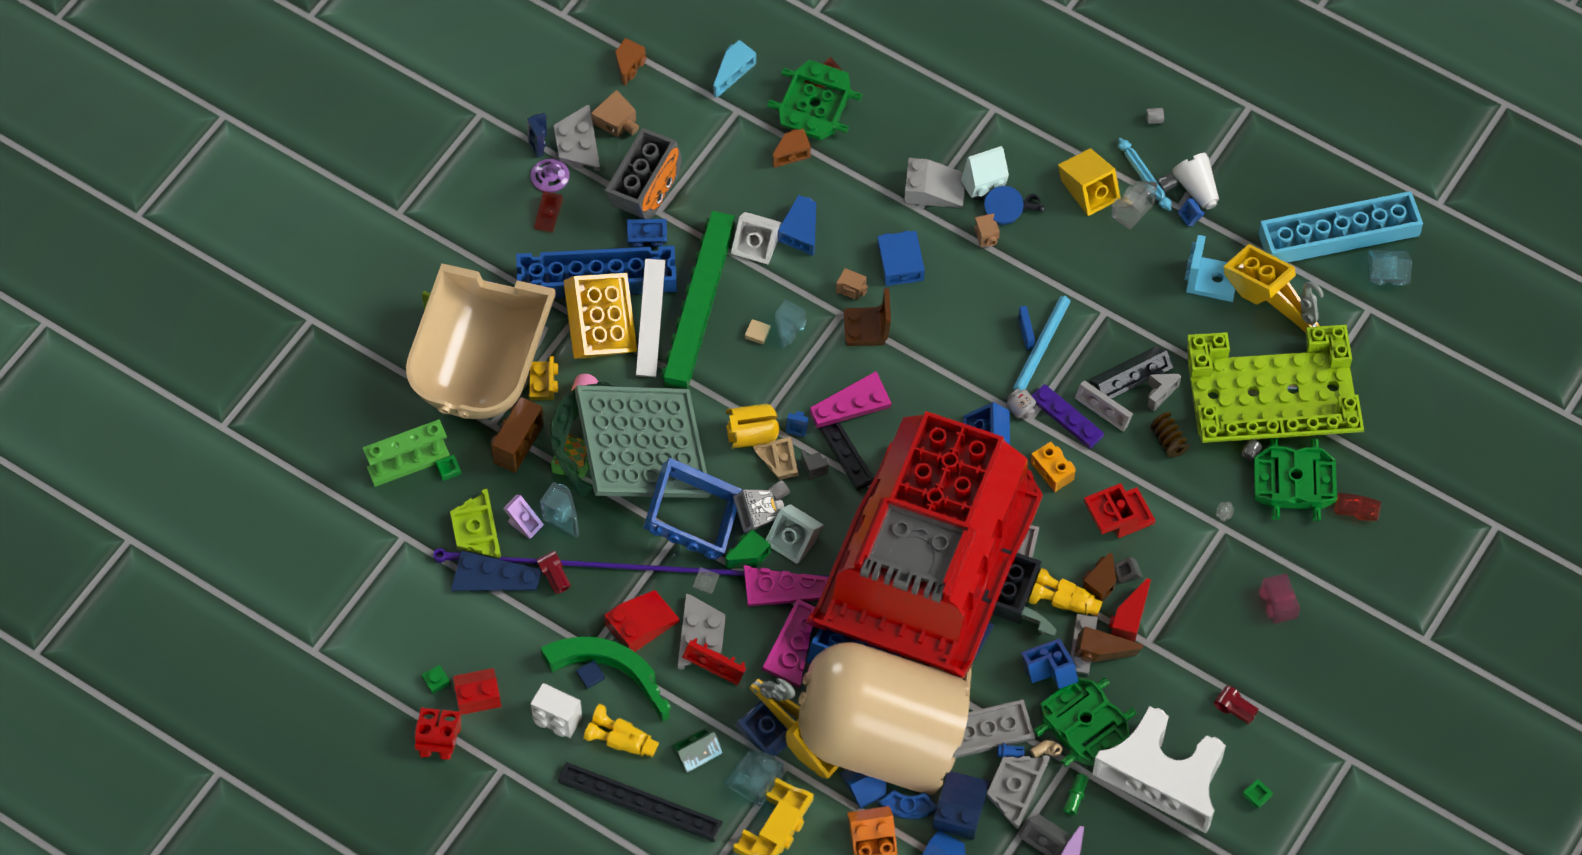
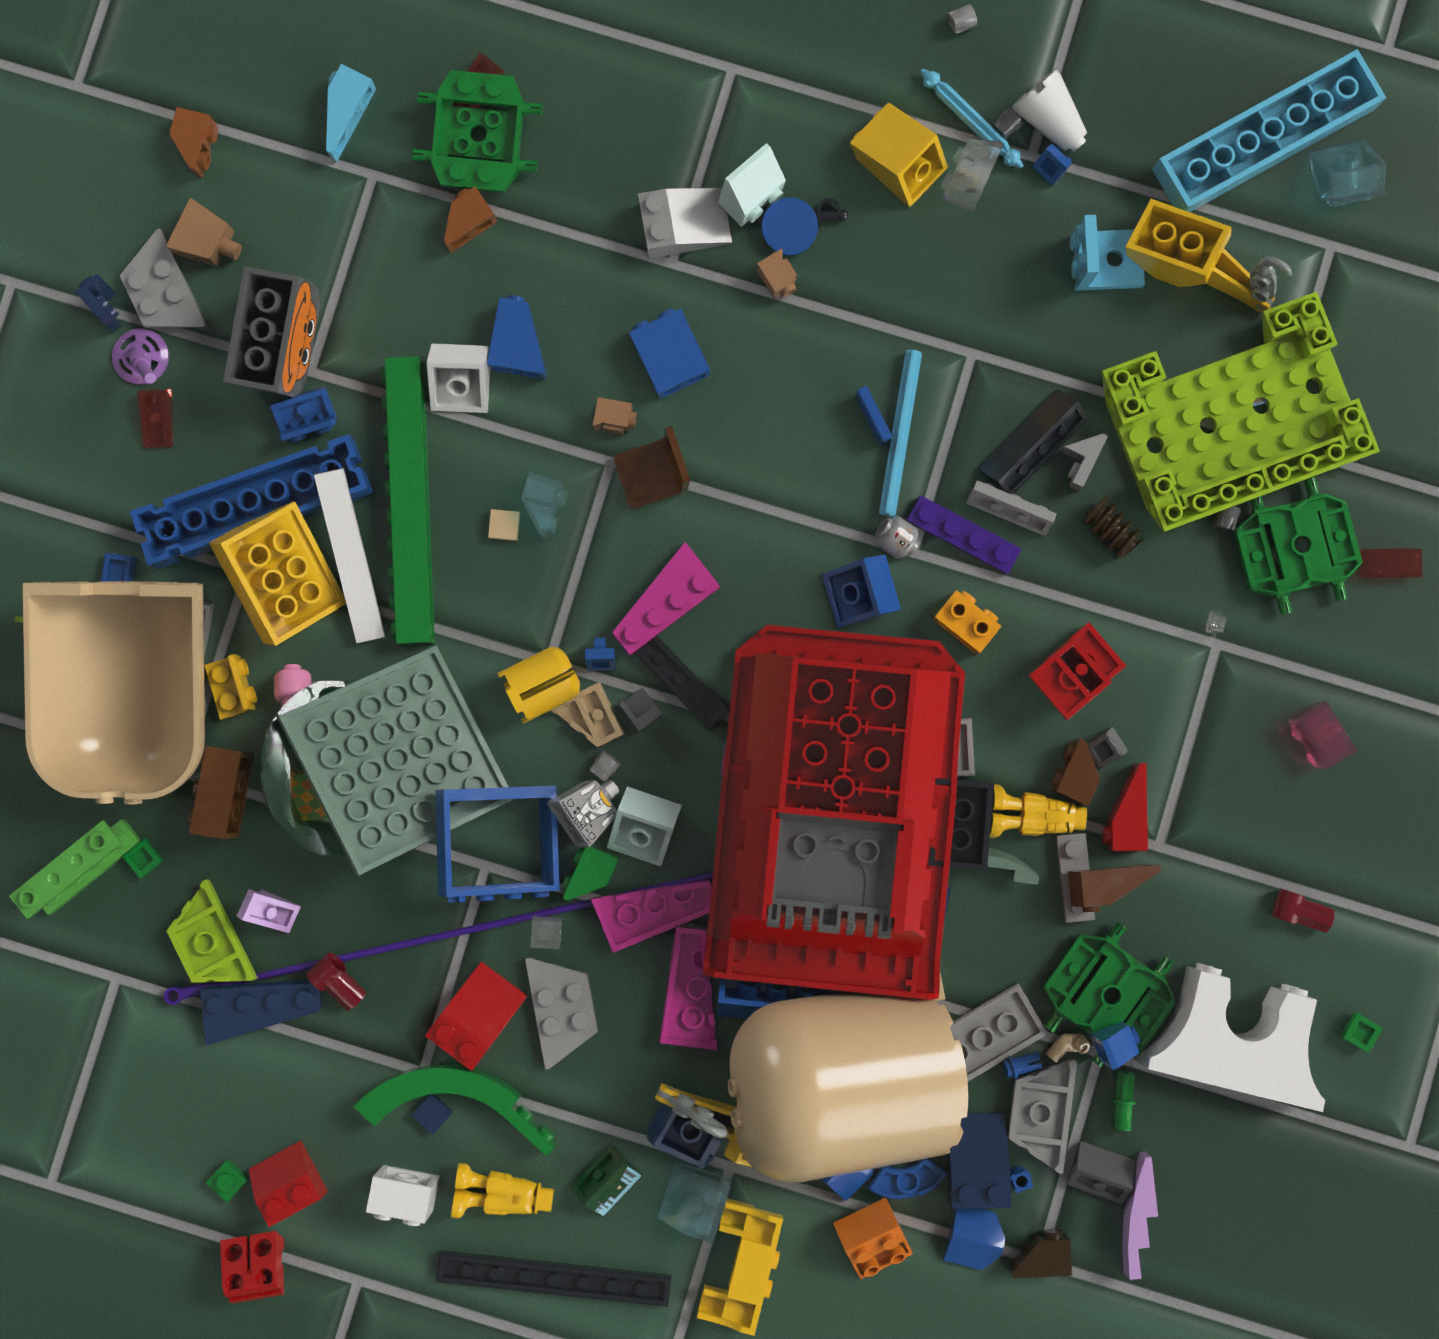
camera: 15 degrees left, 25 degrees up
(559, 509) = (317, 888): clear light blue slope -> none
(714, 662) = (593, 1053): red plate -> none
(987, 829) = (1017, 1171): none -> blue hose
(1048, 661) = (1044, 922): blue brick -> none
(1077, 738) = (1116, 1044): none -> blue slope

